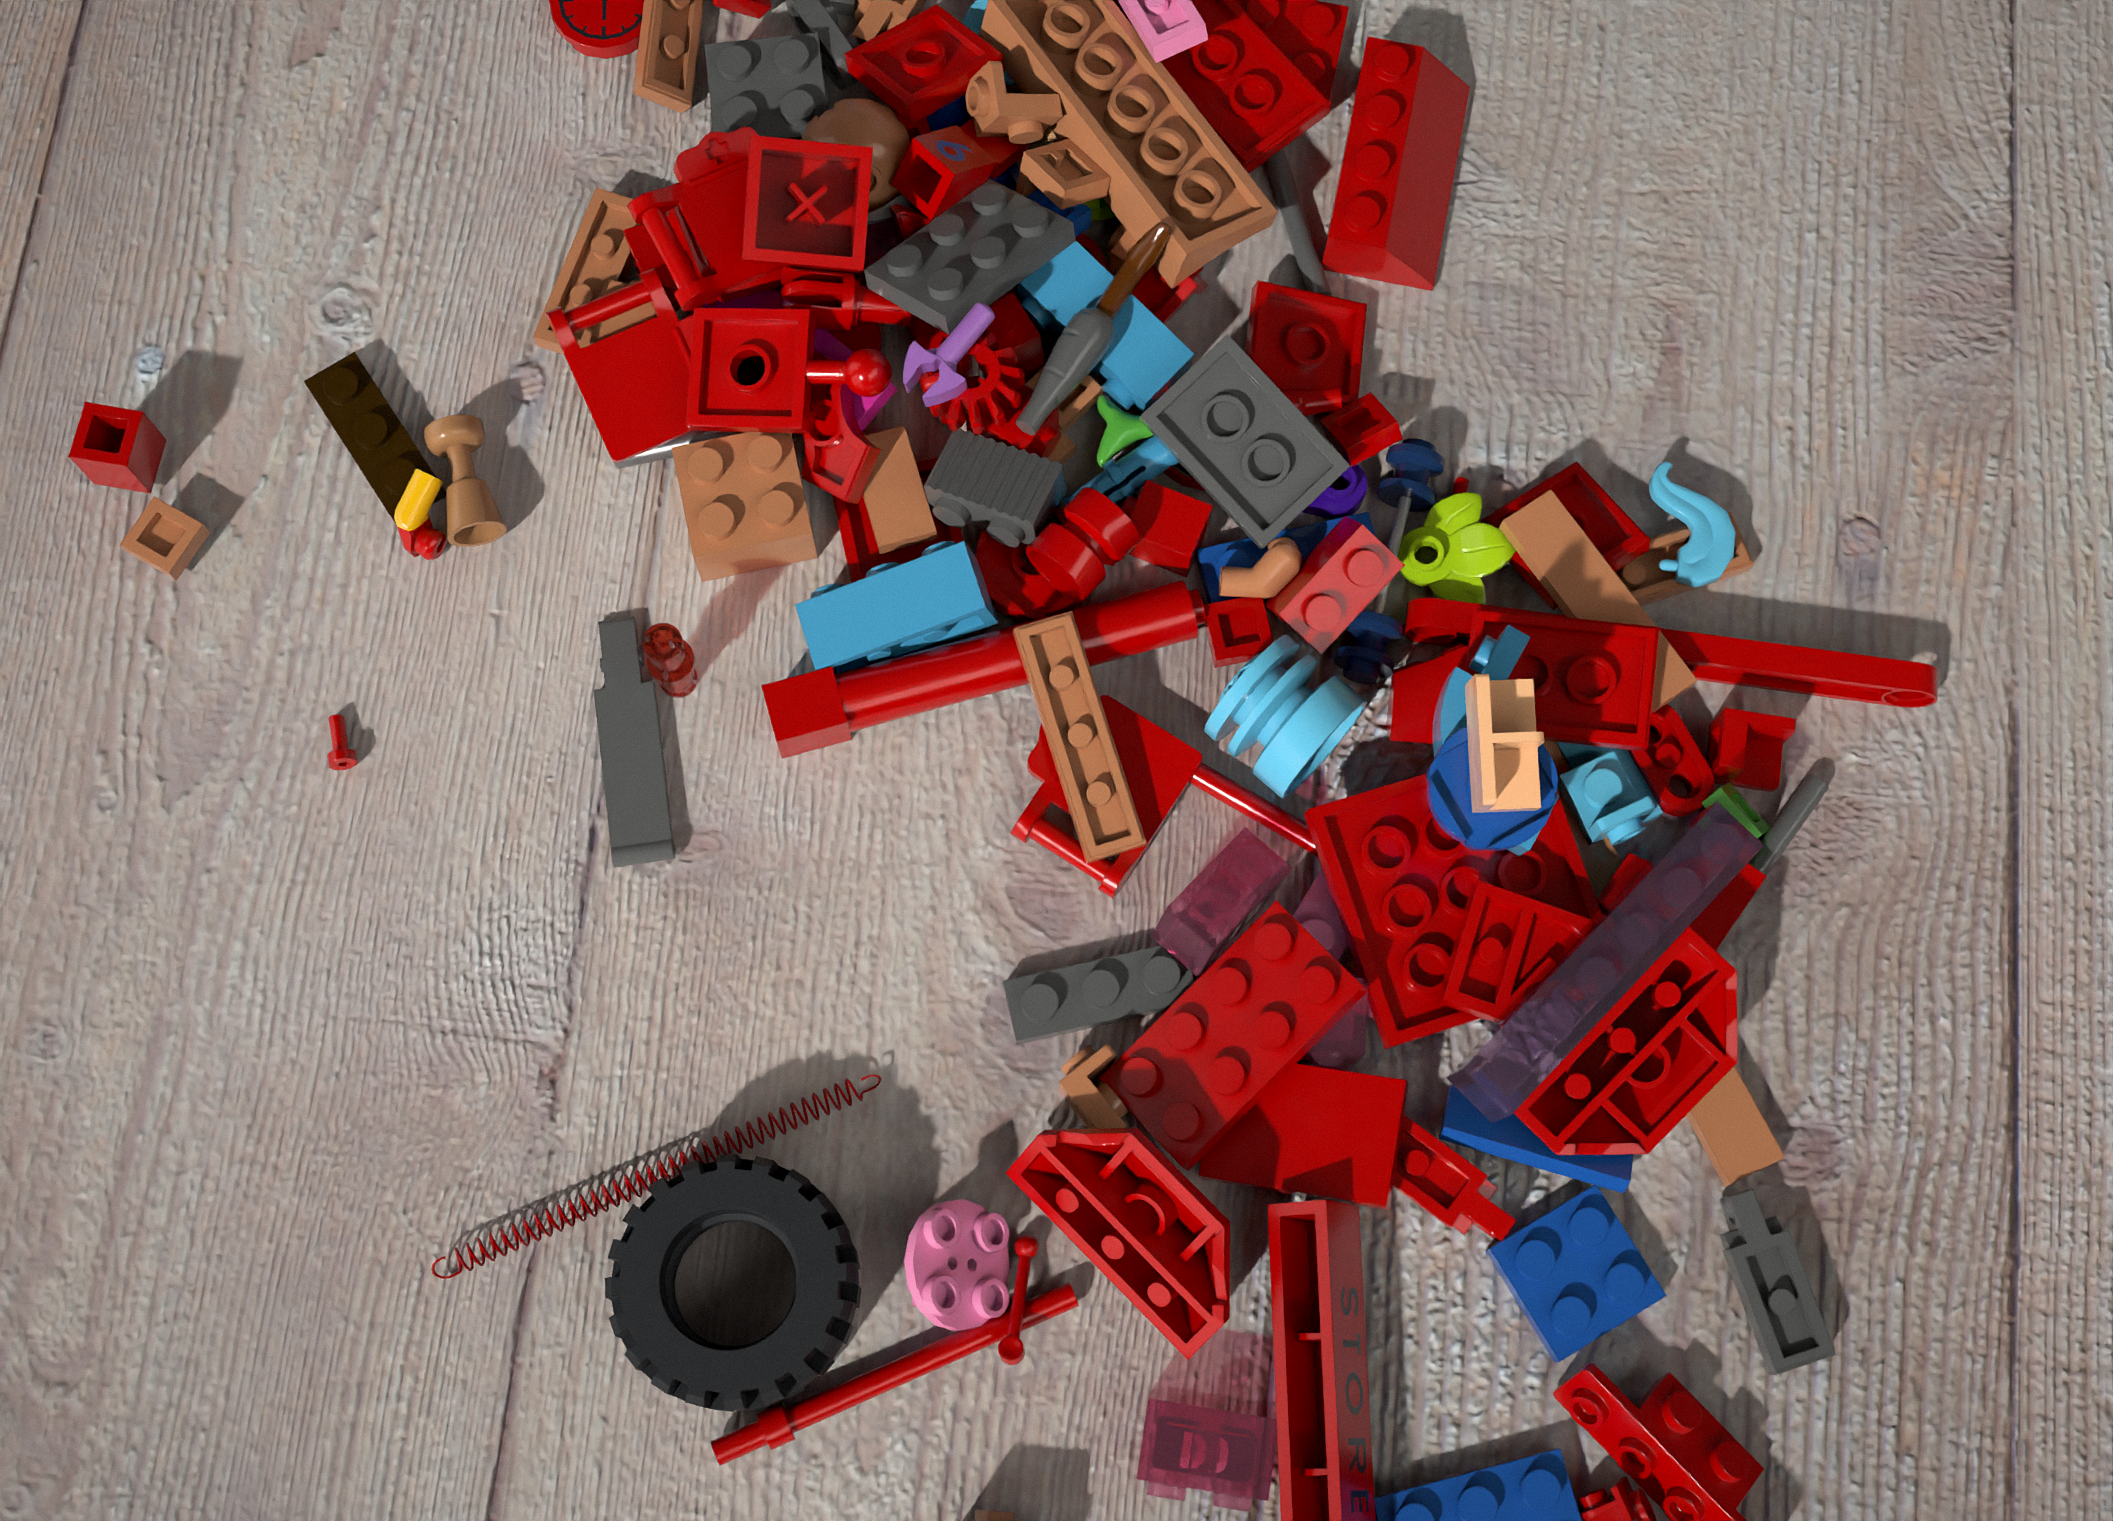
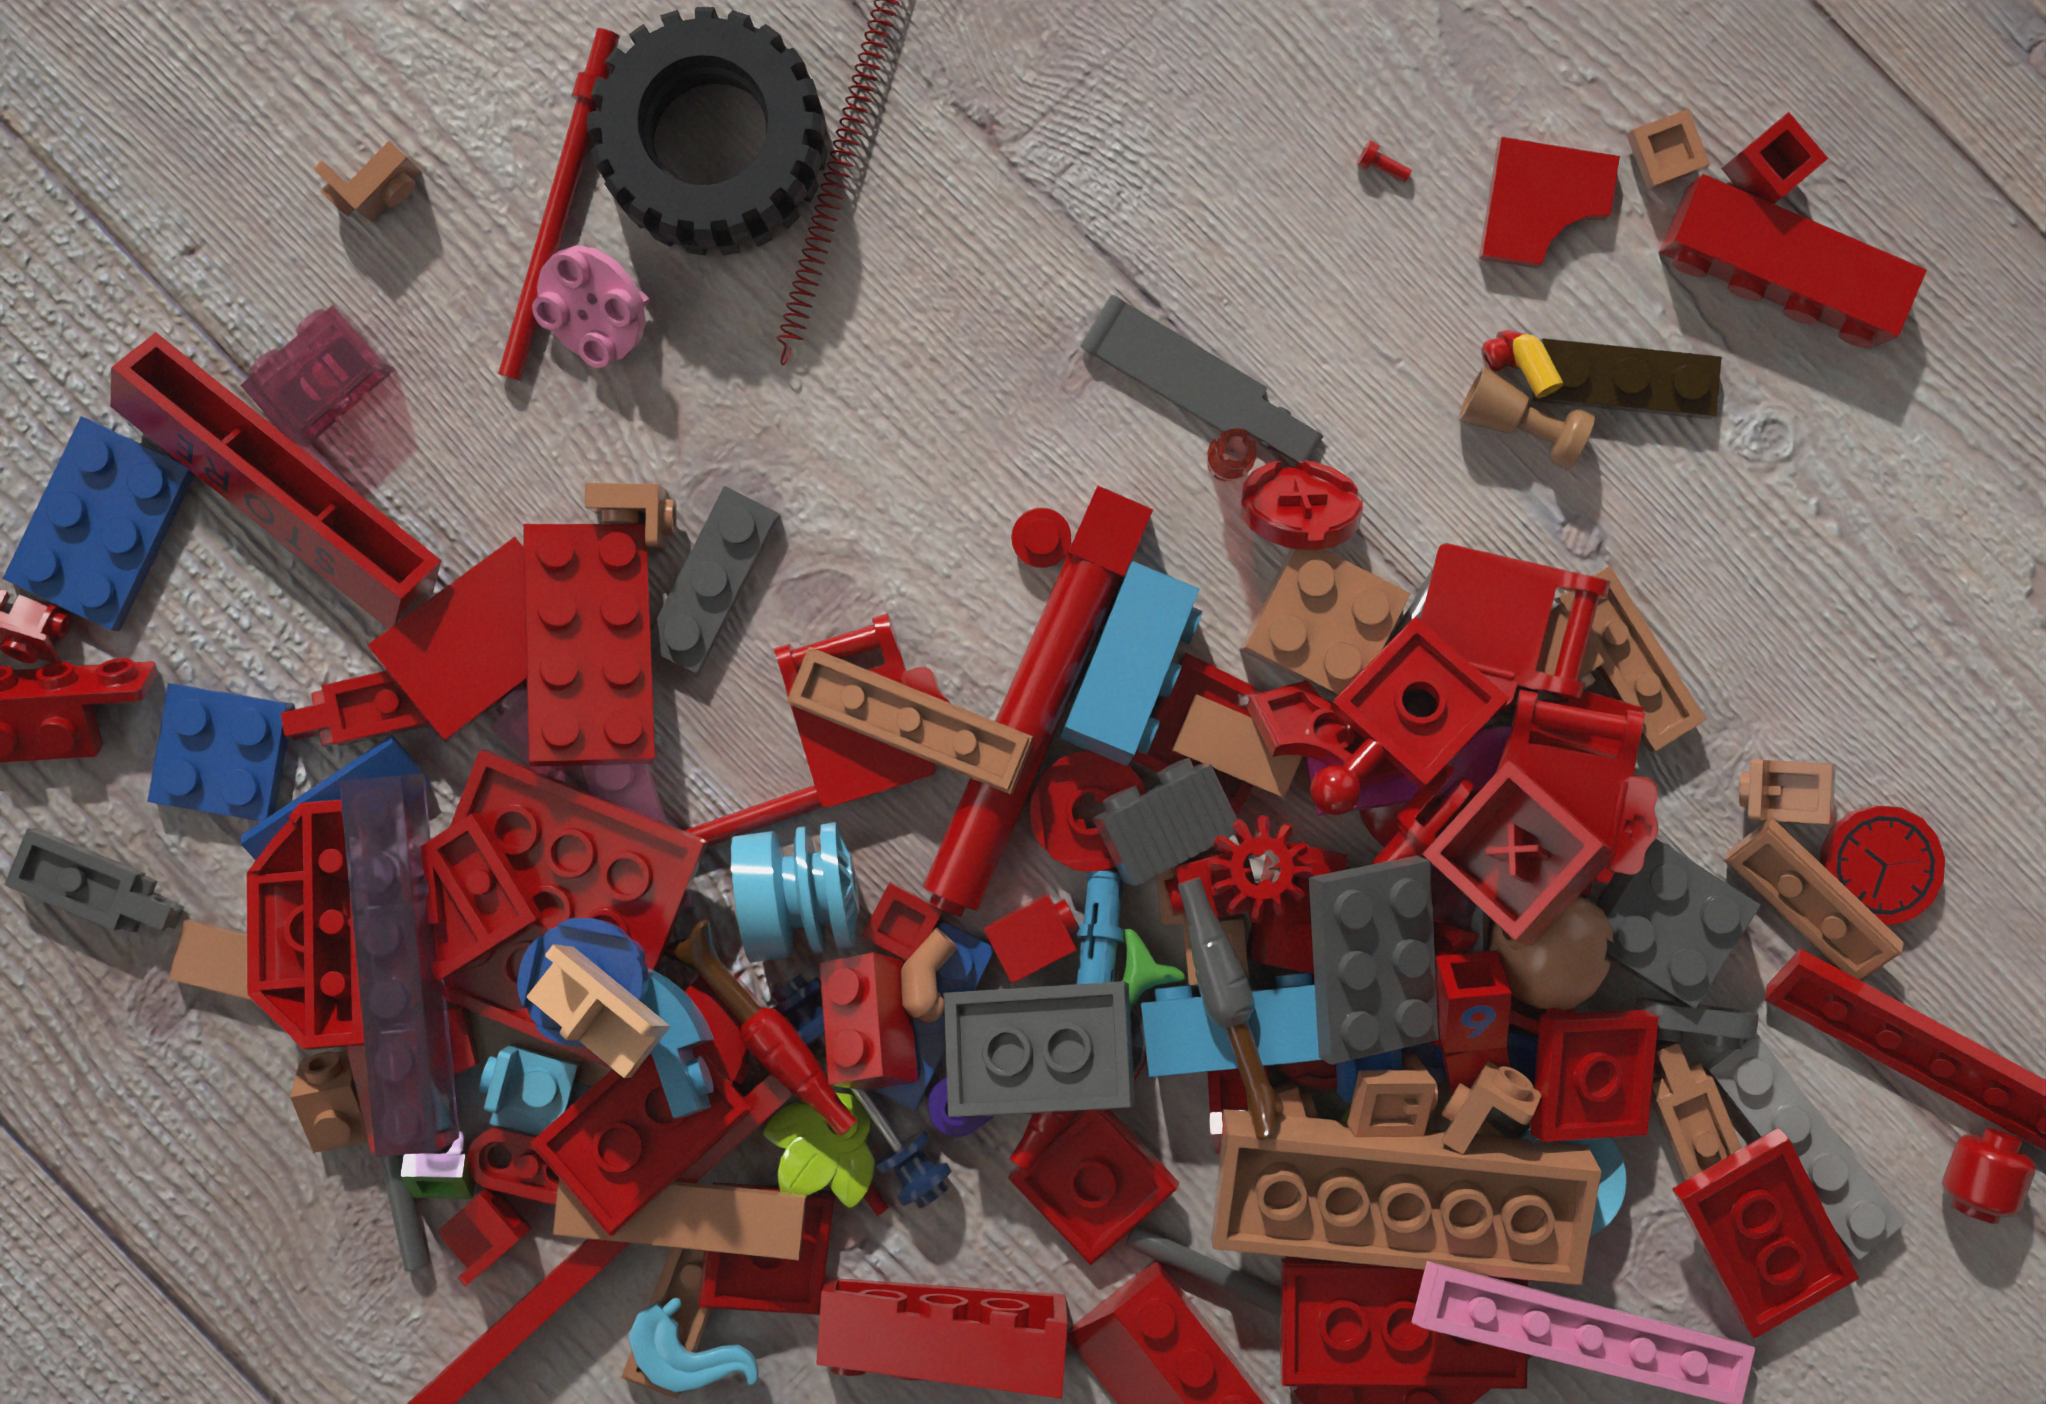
camera: 130 degrees right, 15 degrees up
(189, 385) = (1791, 263): none -> red brick
(275, 606) = (1538, 194): none -> red tile
(602, 96) = (1788, 791): none -> nougat bracket
(668, 579) = (1301, 505): none -> red tile
(853, 764) = (1041, 537): none -> red plate
(946, 357) = (1287, 859): medium lavender bar -> none
(1011, 1347) = (500, 295): red hinge -> none
(1090, 535) = (1060, 850): red wheel -> none
(1135, 1225) = (503, 449): red wedge -> none
(1221, 901) = (694, 721): clear pink brick -> none
(1361, 429) = (983, 1163): red plate -> none
(1407, 652) = (764, 1030): none -> red piece
(1505, 352) = (944, 1334): none -> red wedge
(1760, 945) = (328, 1102): none -> nougat bracket

